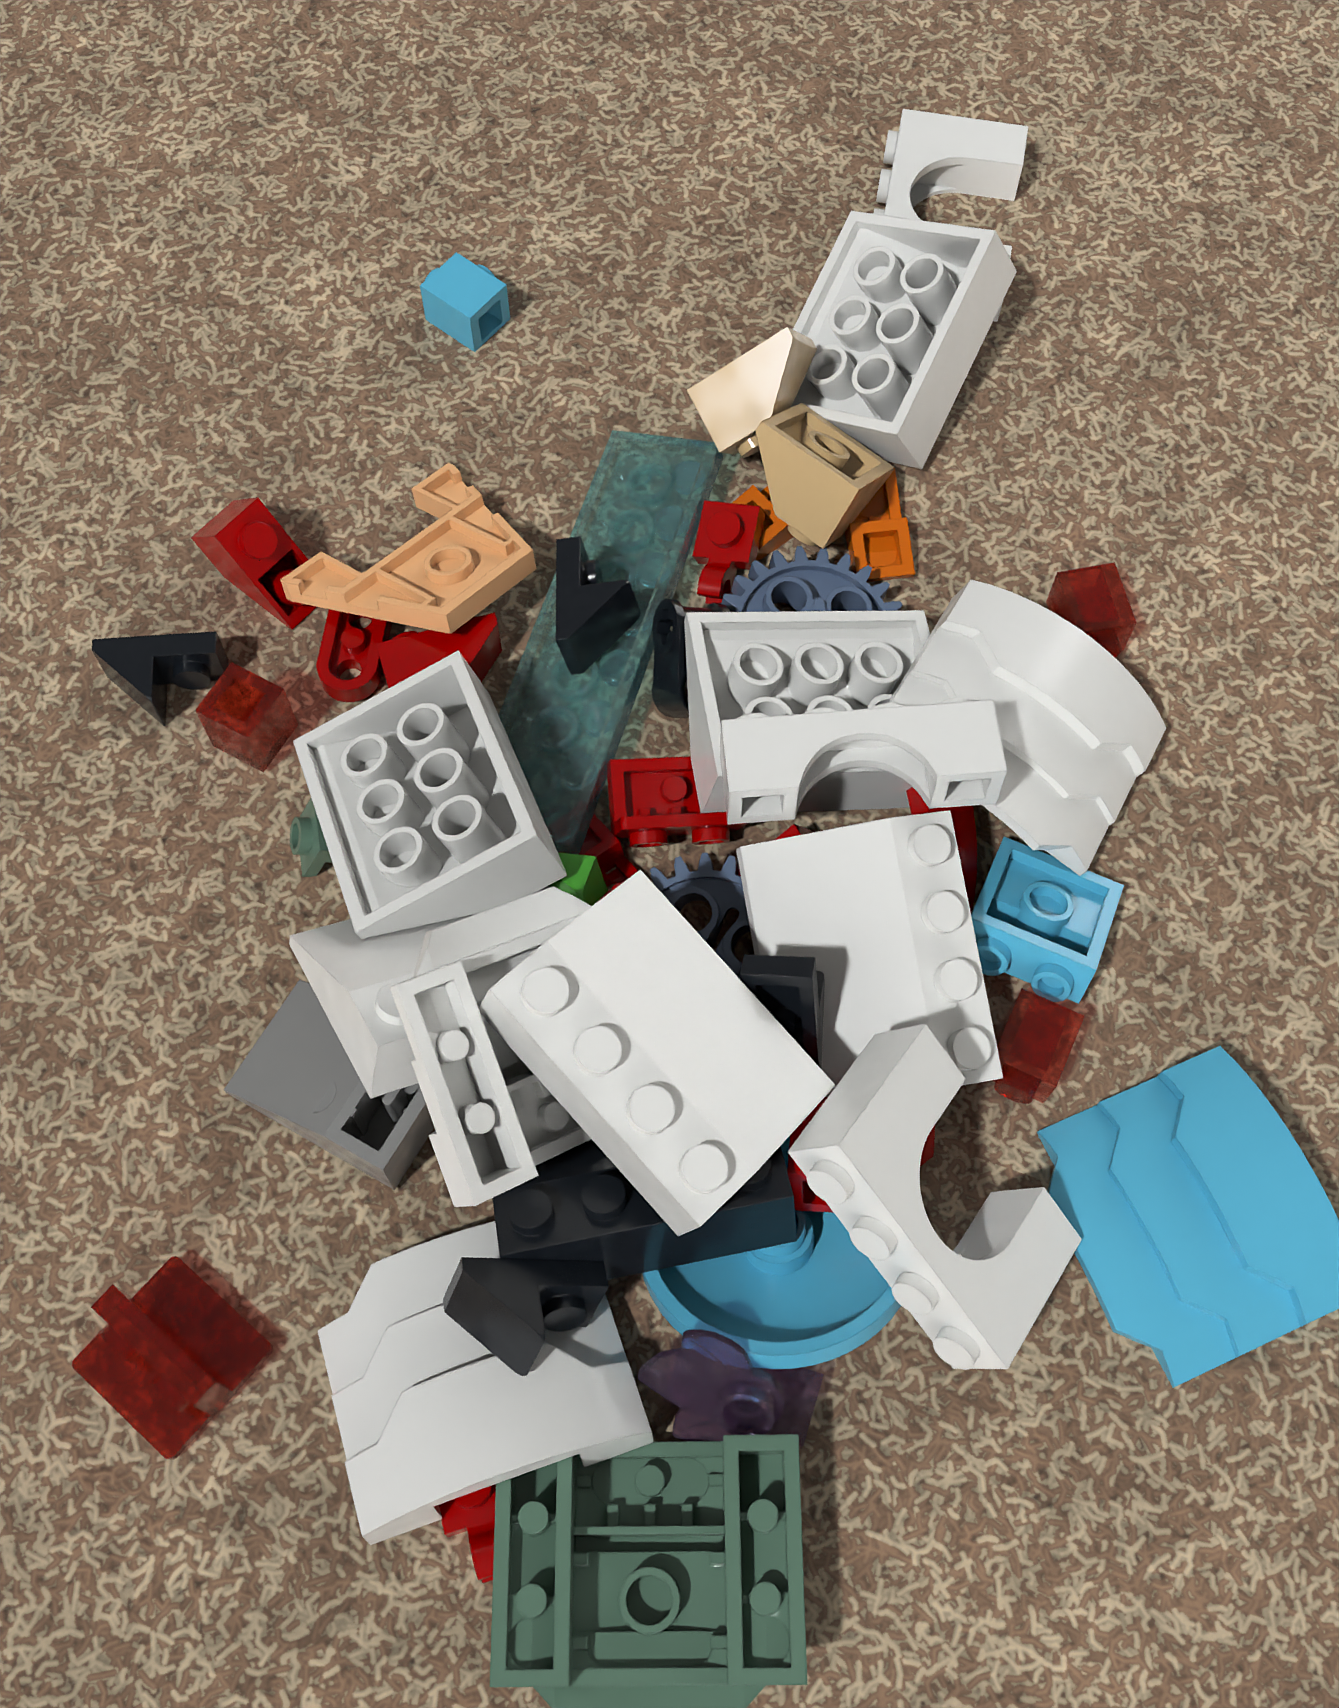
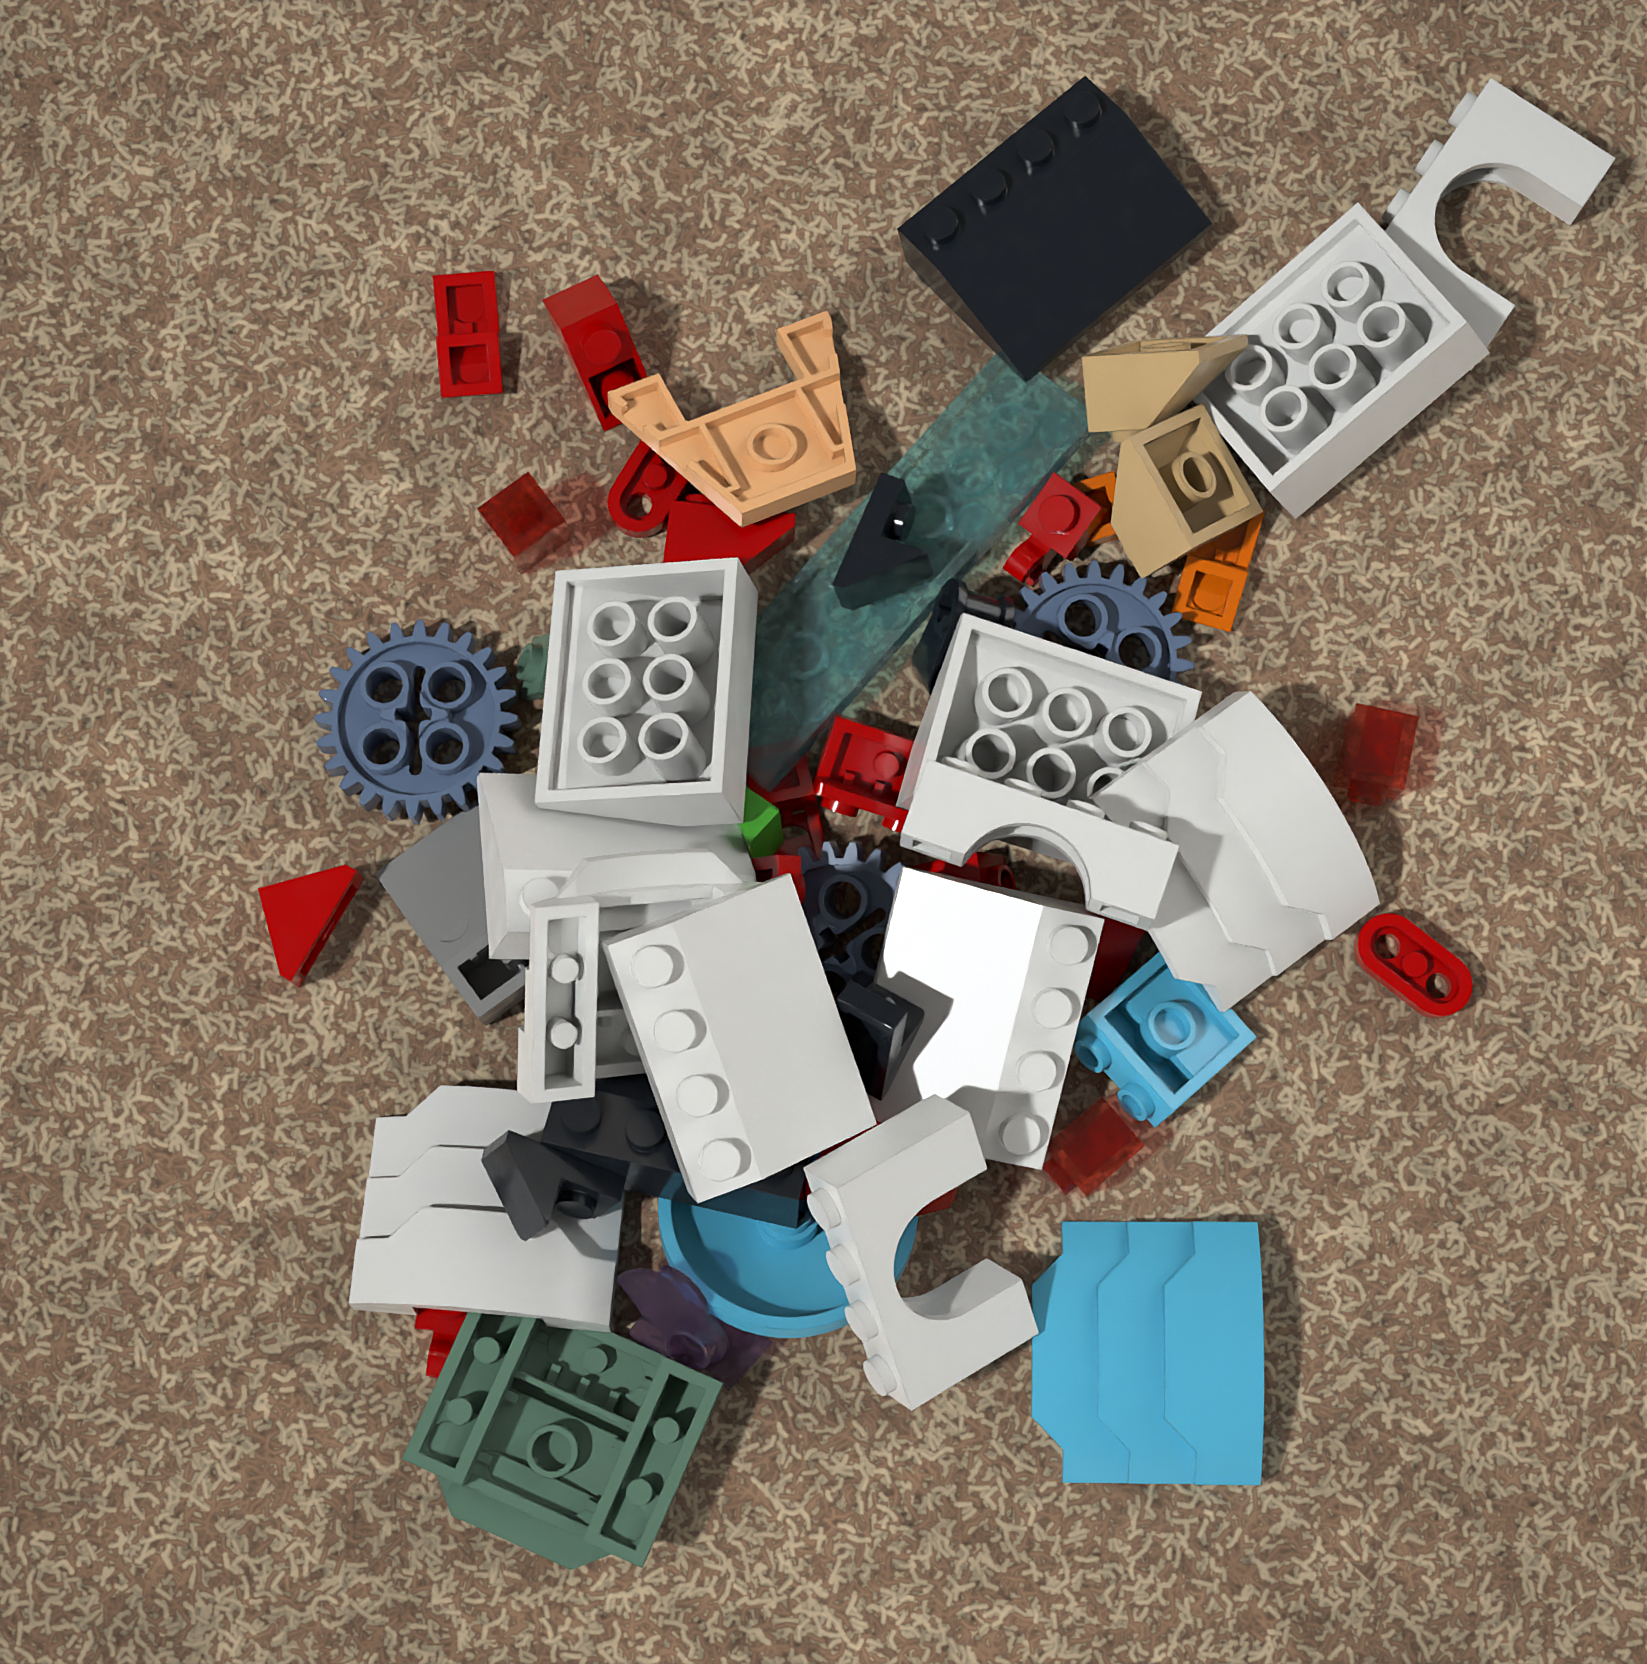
camera: 25 degrees right, 15 degrees up
(133, 591) = (468, 334): none -> red slope
(148, 663) = (452, 422): black slope -> none
(157, 954) = (362, 723): none -> sand blue gear
(167, 1154) = (304, 915): none -> red slope
(170, 1355) = (250, 1086): clear red bracket -> none
(465, 301) = (922, 123): medium azure brick -> none
(609, 330) = (1053, 229): none -> black slope
(1219, 769) = (1414, 962): none -> red plate

